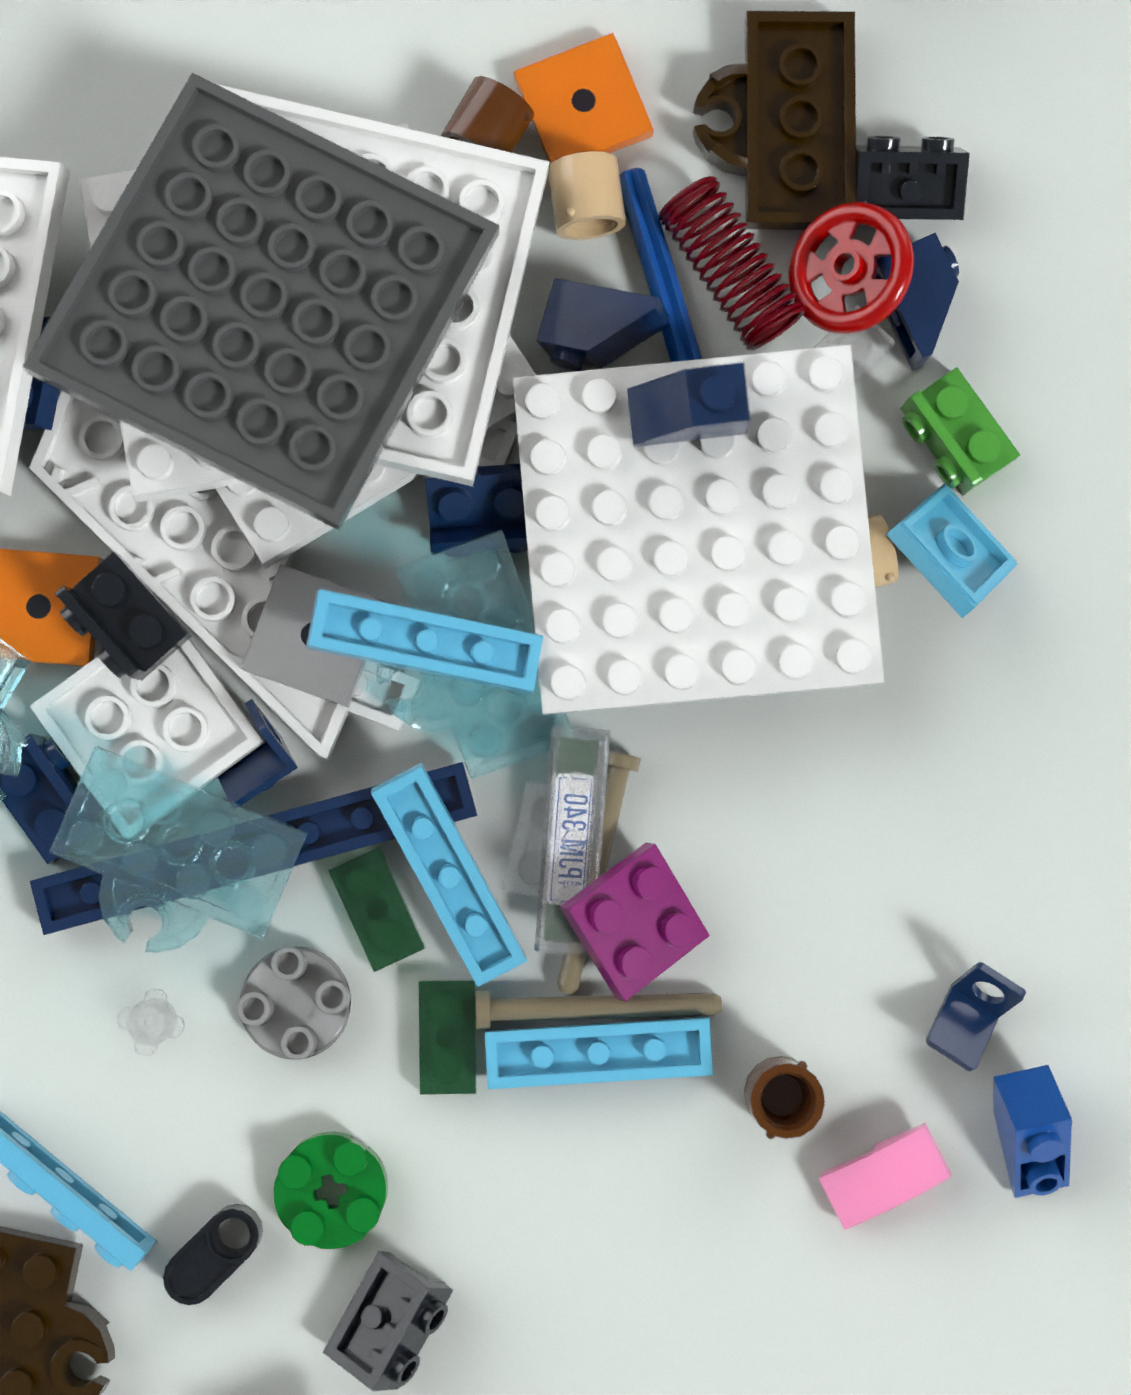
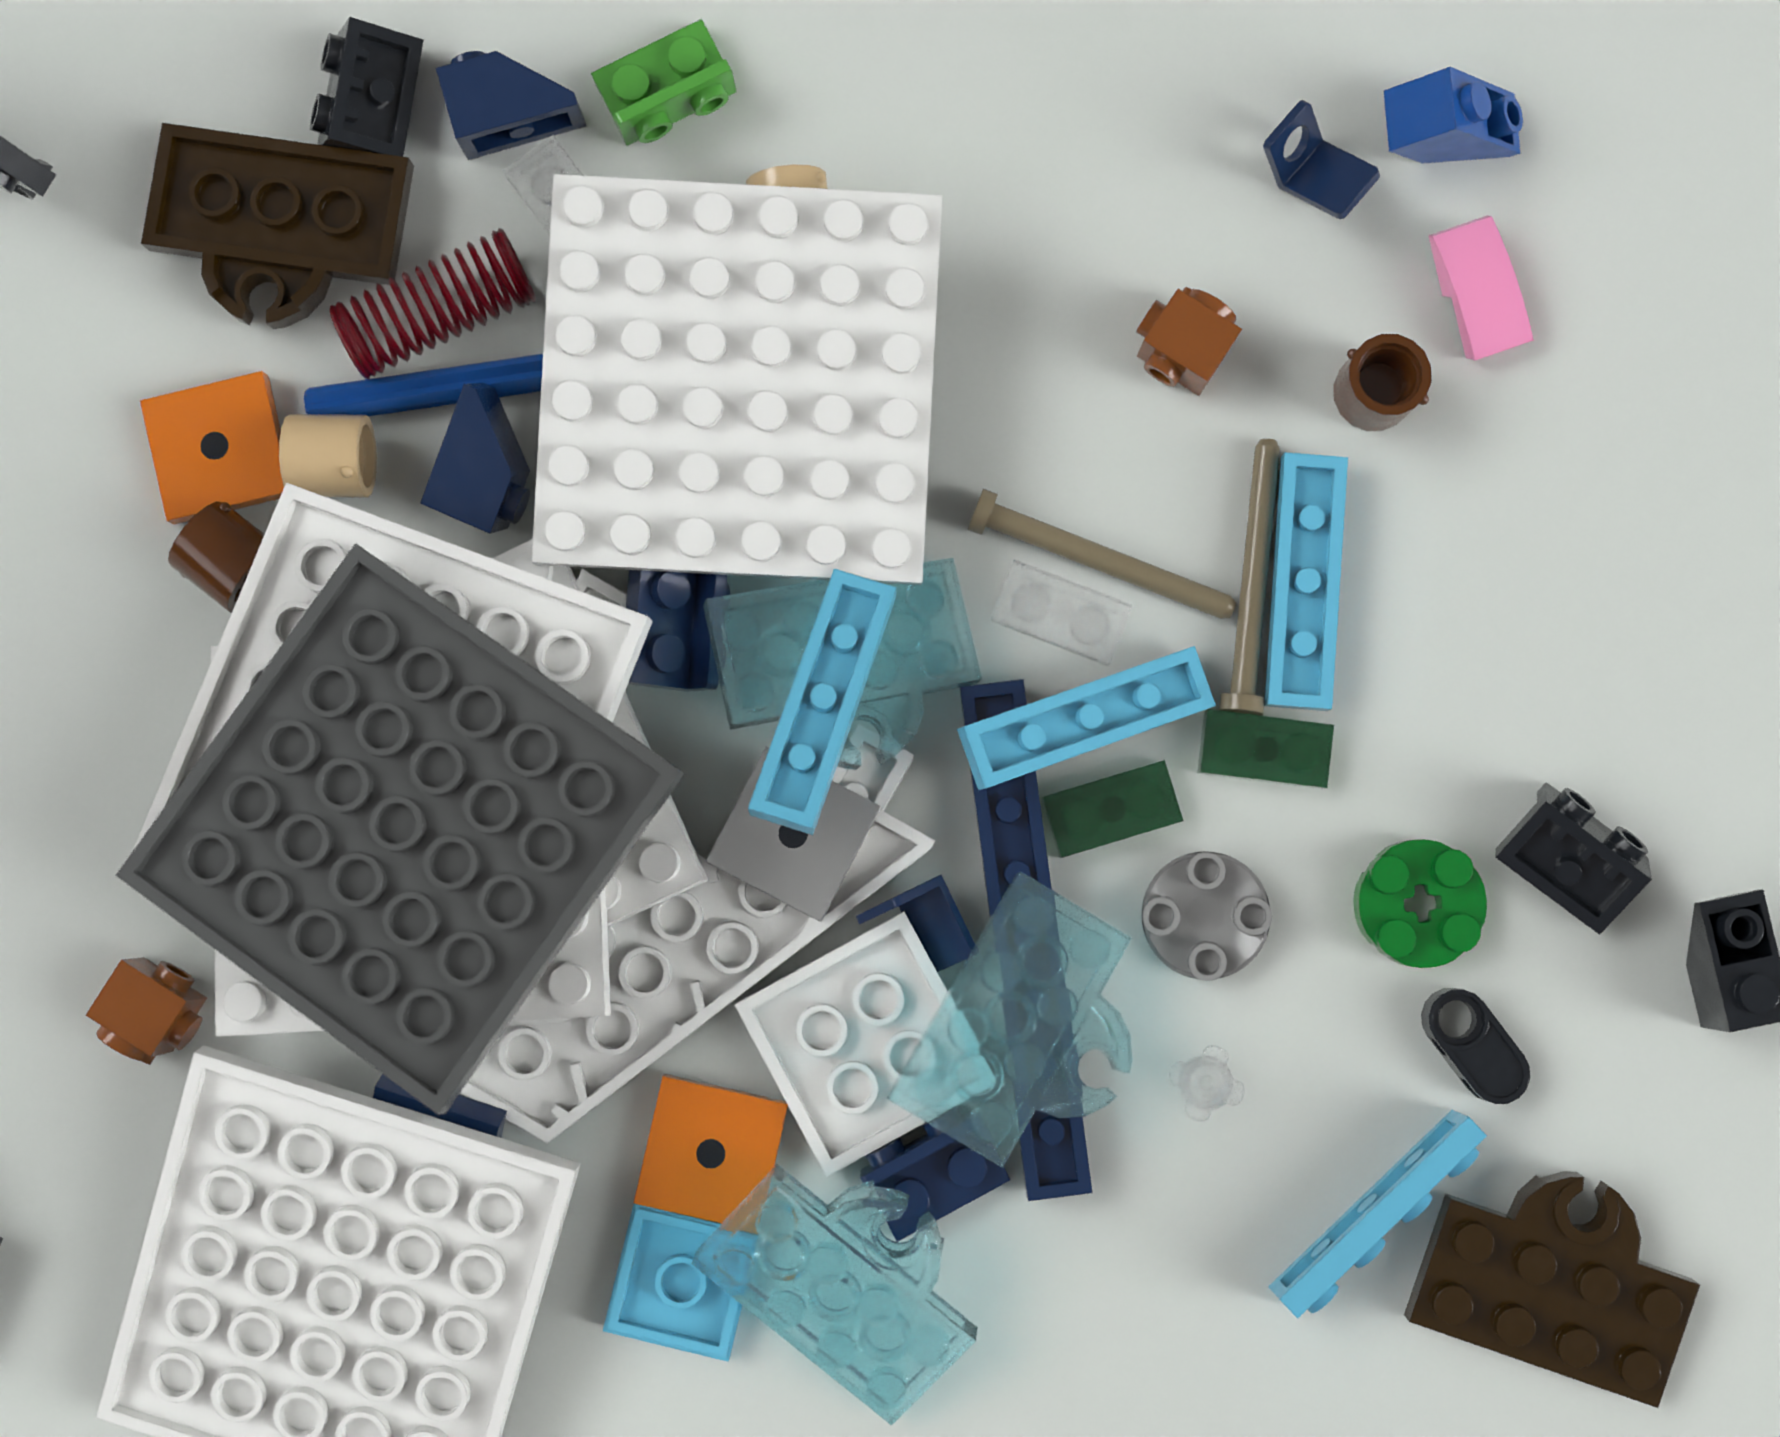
camera: 75 degrees left, 0 degrees up
(100, 121) = (147, 1009): none -> dark orange brick
(123, 618) = (740, 1051): black bracket -> none
(570, 830) = (1066, 574): clear tile -> none
(635, 921) = (1167, 517): magenta plate -> none
(690, 405) = (599, 357): dark blue slope -> none
(799, 918) = (1187, 338): none -> dark orange brick
(881, 294) = (499, 136): red plate -> none
(952, 550) = (799, 105): medium azure tile -> none

